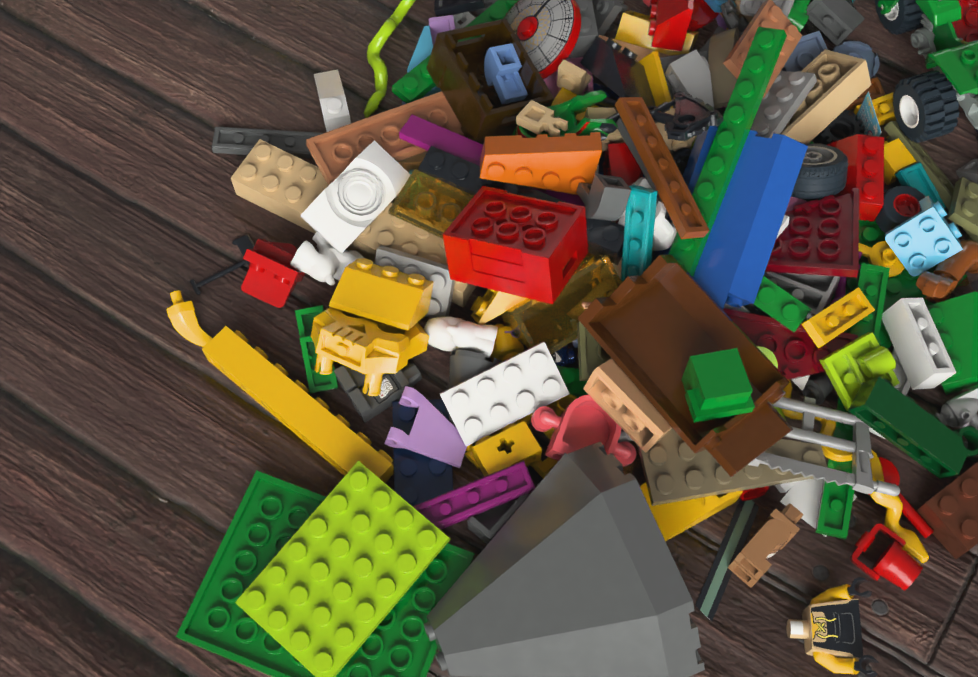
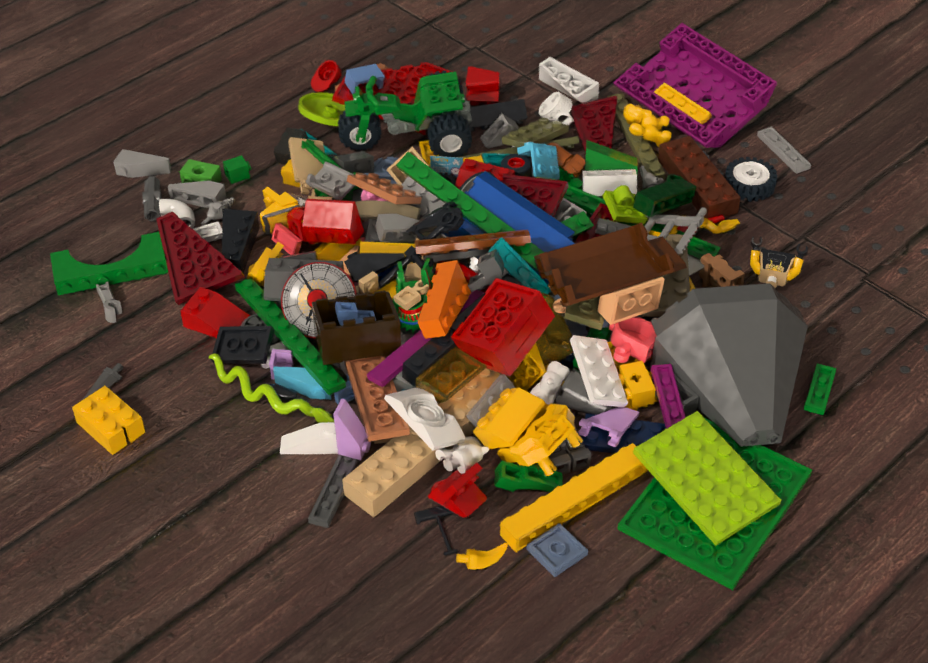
camera: 75 degrees left, 20 degrees down
(214, 406) = (557, 550): none -> sand blue tile
(321, 110) = (350, 432): none -> lavender slope
(399, 49) = (284, 393): none -> black cone
(717, 385) = (634, 250): green plate -> none
(798, 364) = (607, 226): none -> dark grey axle
(838, 317) = (589, 204): yellow plate -> none
(893, 563) = (737, 233): red piece -> none

